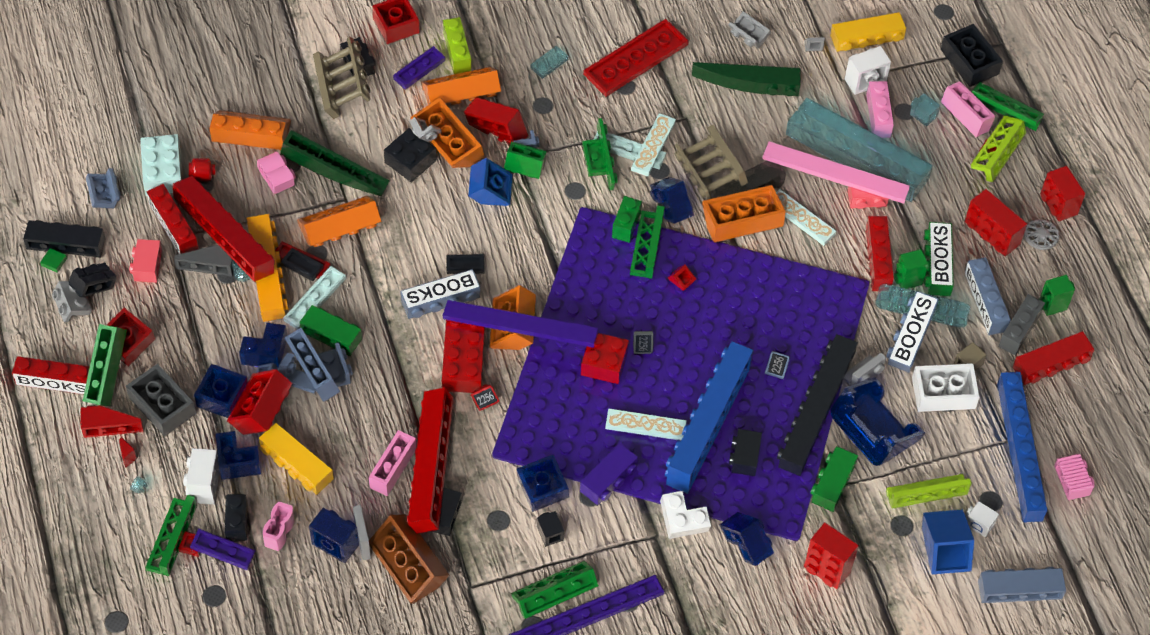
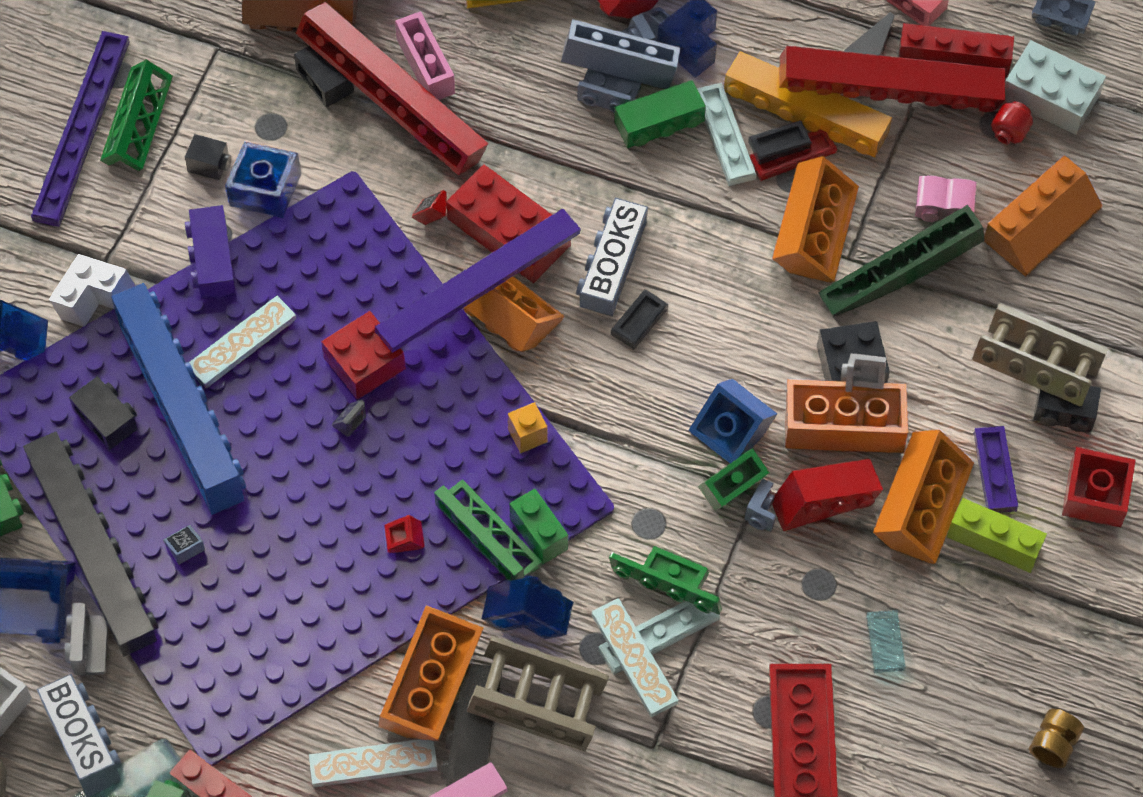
camera: 130 degrees right, 5 degrees up
(578, 258) = (527, 427): none -> light orange brick

